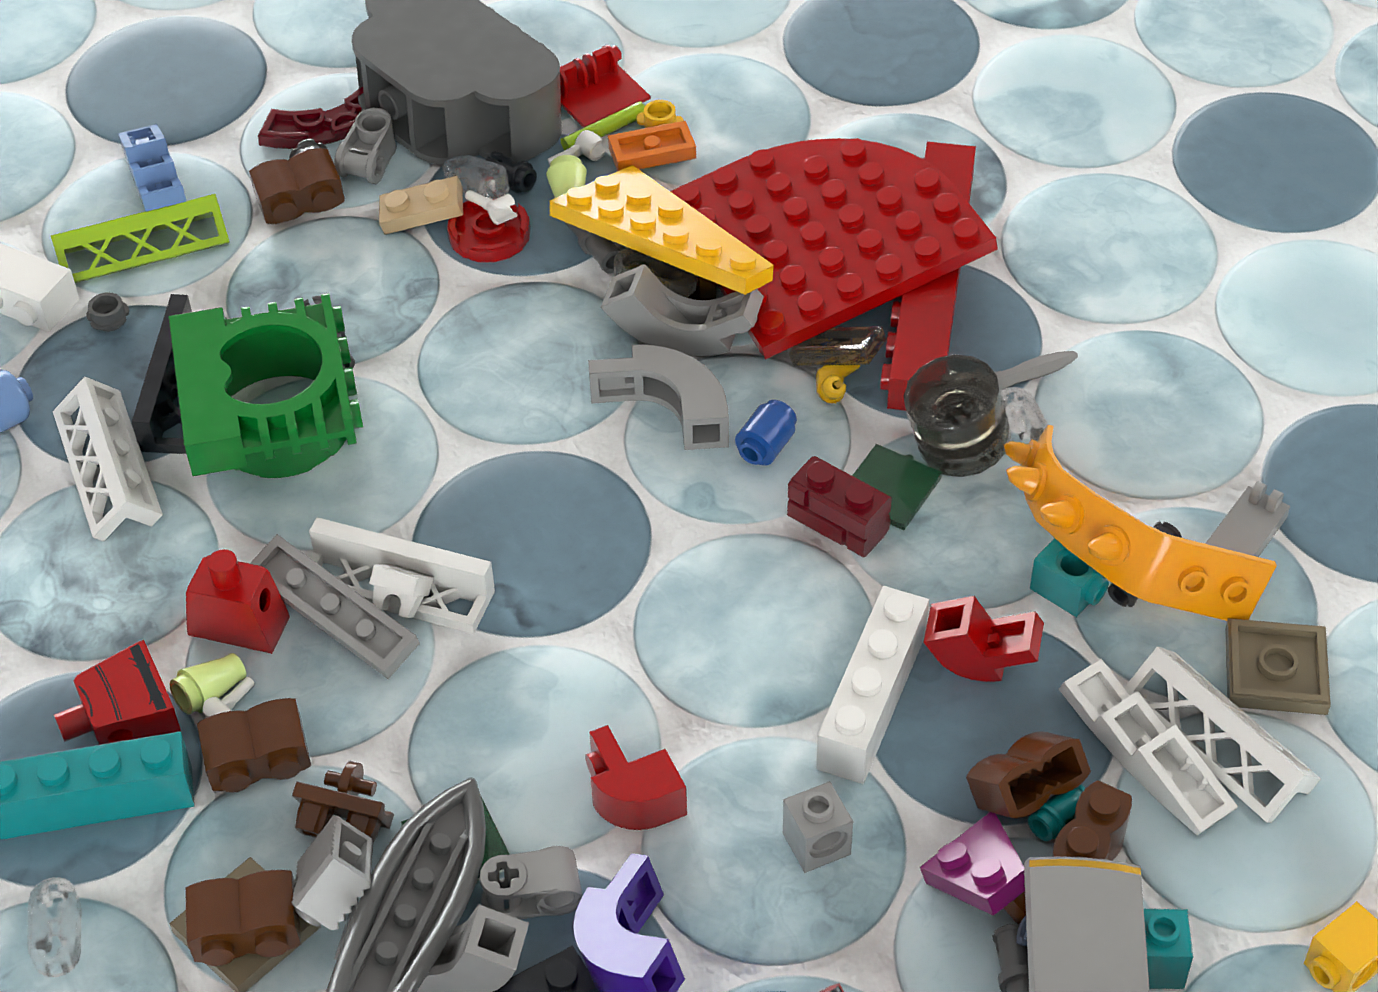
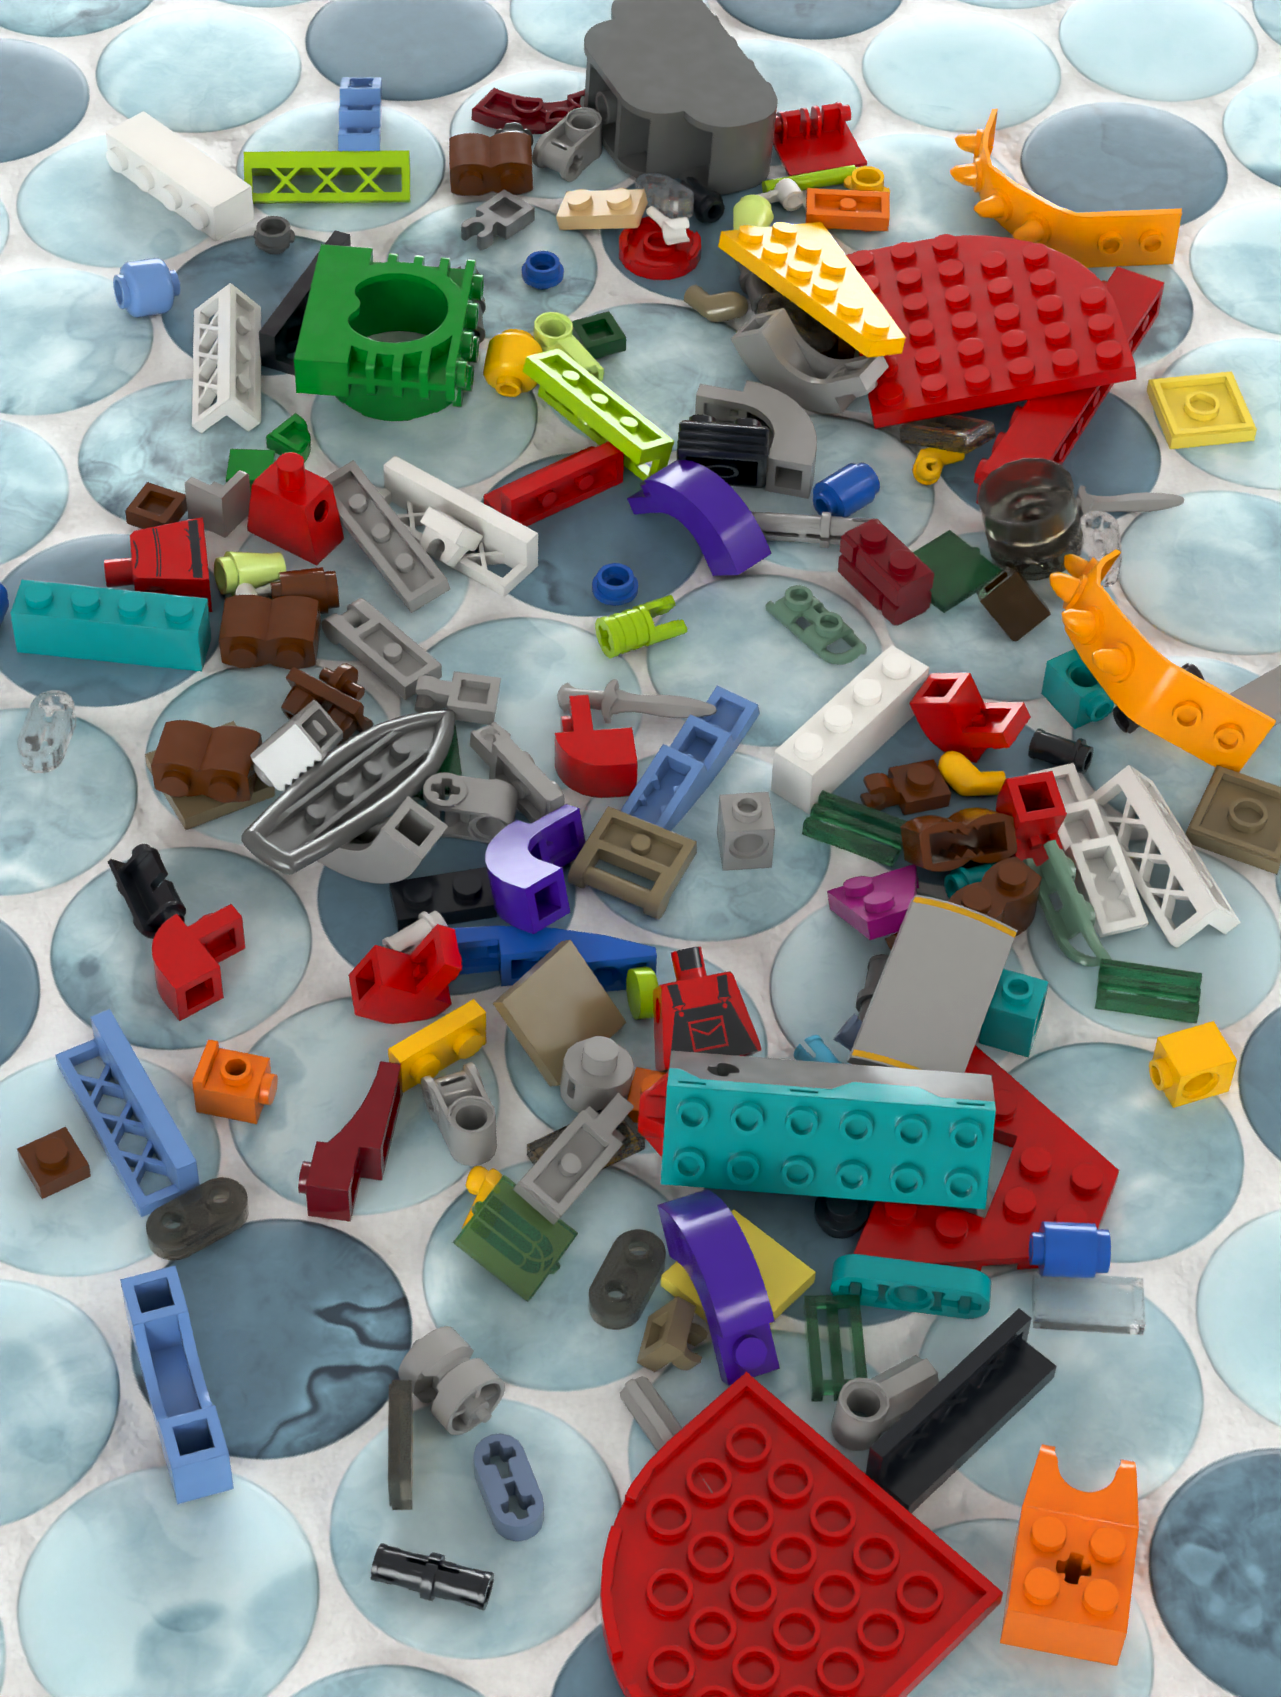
camera: 15 degrees right, 0 degrees up
(87, 639) = (155, 507): none -> reddish brown plate
(150, 616) = (219, 505): none -> light grey panel
(169, 569) = (249, 461): none -> green tile
(199, 524) = (291, 437): none -> green tile
(276, 682) = (309, 583): none -> reddish brown brick
(324, 236) = (499, 216): none -> flat silver plate
(375, 728) = (381, 647): none -> light grey plate
(386, 281) = (542, 270): none -> blue plate
(393, 384) = (506, 362): none -> yellow head
(433, 359) = (554, 331): none -> yellowish green piece
(465, 334) = (599, 334): none -> dark green plate
(481, 757) = (468, 695): none -> light grey plate
(483, 500) = (559, 484): none -> red panel
(503, 417) = (599, 411): none -> lime fence
(552, 824) = (509, 763): none -> light grey hinge
(567, 274) = (716, 307): none -> dark tan arm
(579, 583) = (615, 584): none -> blue plate
(620, 633) = (636, 627): none -> lime hinge
(633, 719) = (617, 701): none -> light grey sword
(639, 426) = (730, 450): none -> black brick
(647, 489) = (710, 512): none -> dark purple arch
(722, 879) = (638, 849): none -> dark tan plate
(728, 771) = (692, 761): none -> medium blue slope
(730, 483) = (806, 528): none -> light grey pin
(803, 579) = (825, 626): none -> sand green piece
(833, 115) = (1087, 237): none -> light orange piece
(920, 781) = (860, 823): none -> clear green tile
(951, 726) = (911, 786): none -> reddish brown plate
(970, 504) = (1013, 603): none -> dark brown panel
(1001, 701) = (967, 778): none -> yellow arm
(1053, 260) = (1201, 410): none -> light yellow tile
(1078, 646) = (1060, 750): none -> black pin
(1098, 723) = (1036, 811): none -> red brick
(1169, 820) = (1076, 915): none -> sand green piece
(1265, 872) = (1148, 984): none -> clear green tile

